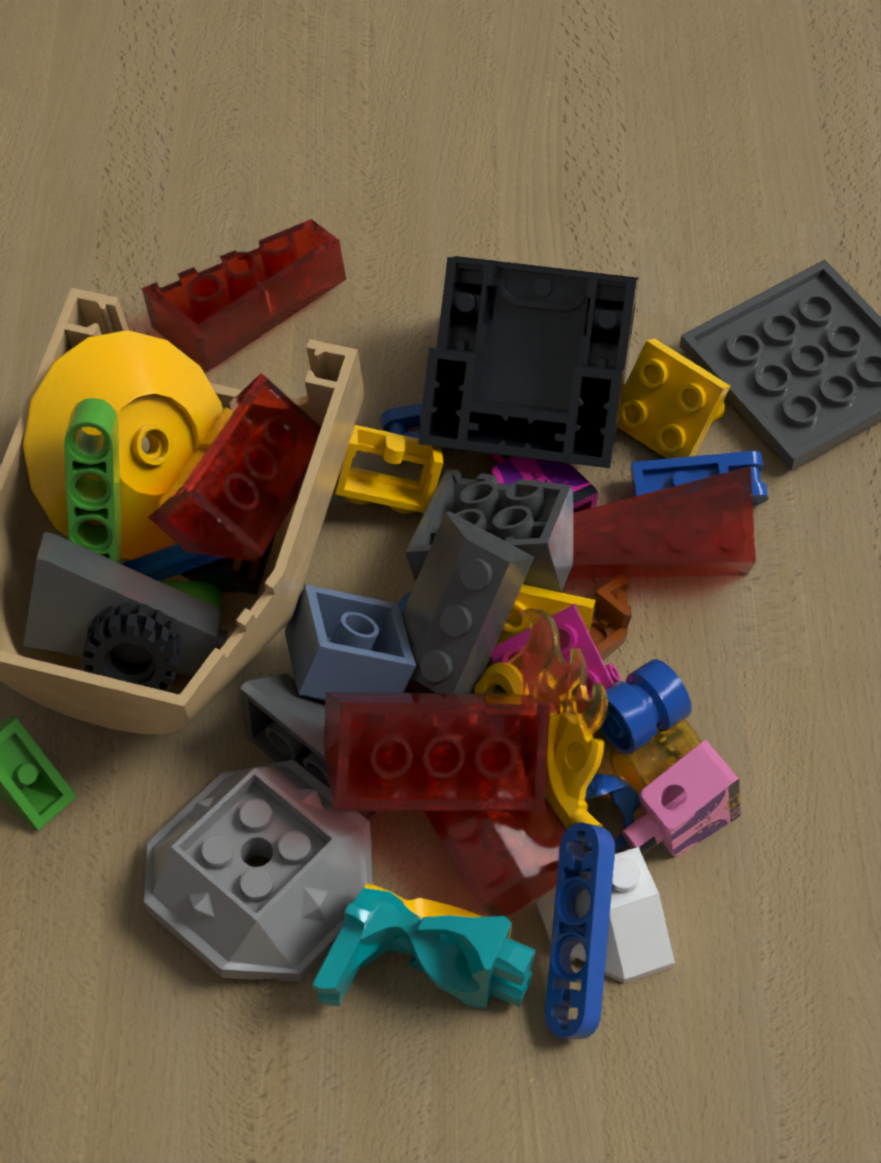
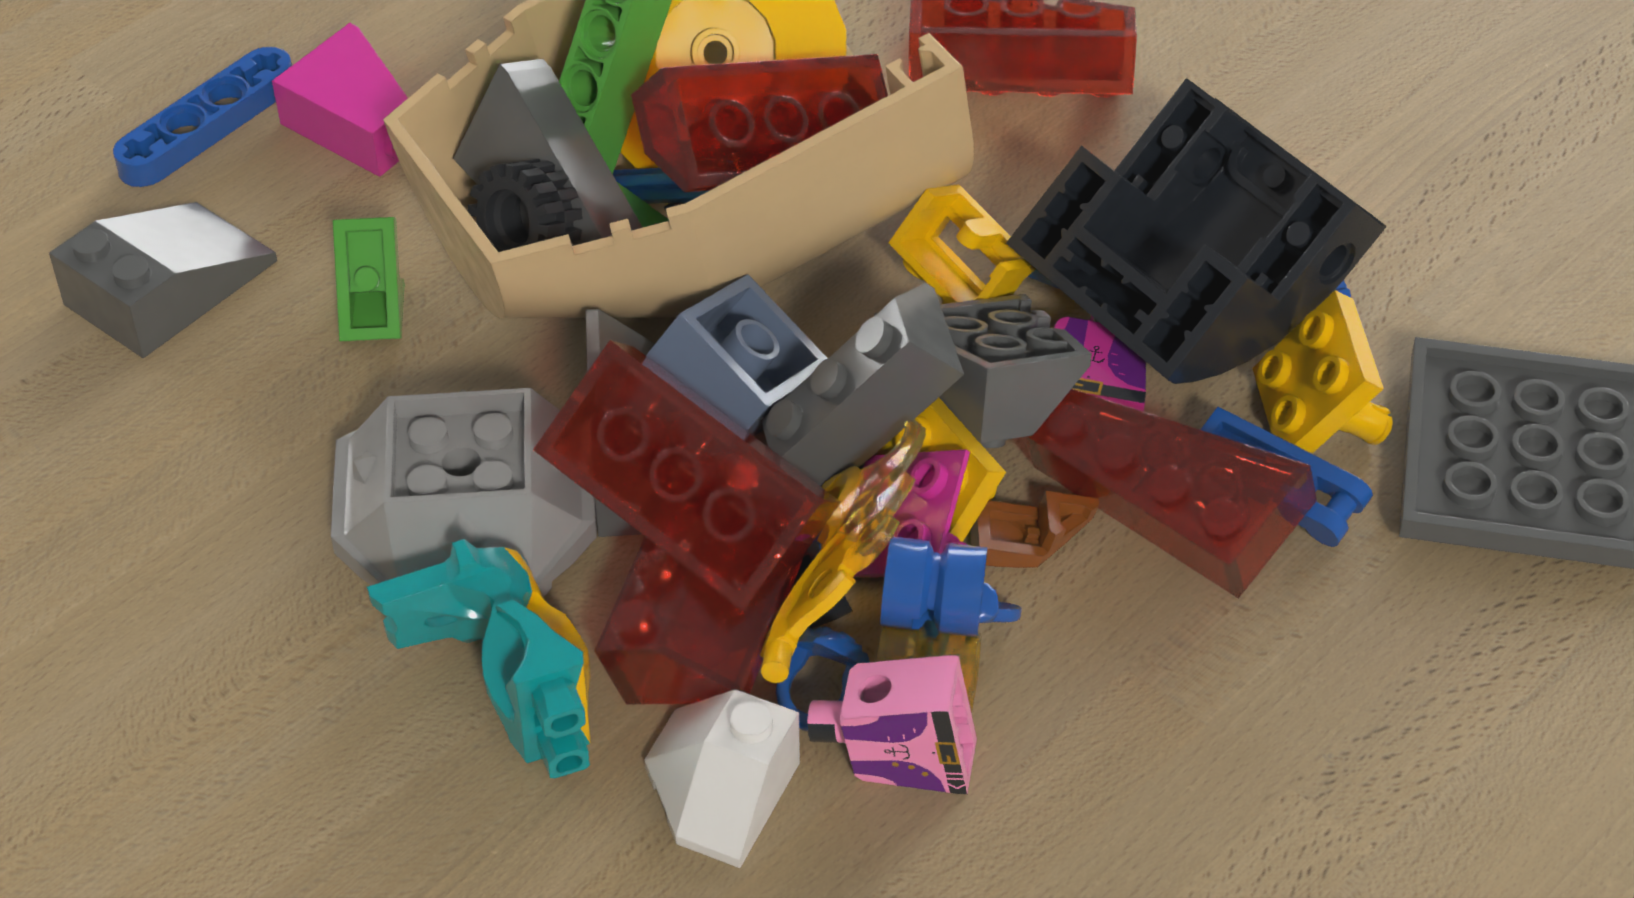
camera: 45 degrees right, 10 degrees down
(588, 930) = (661, 742): blue beam -> none

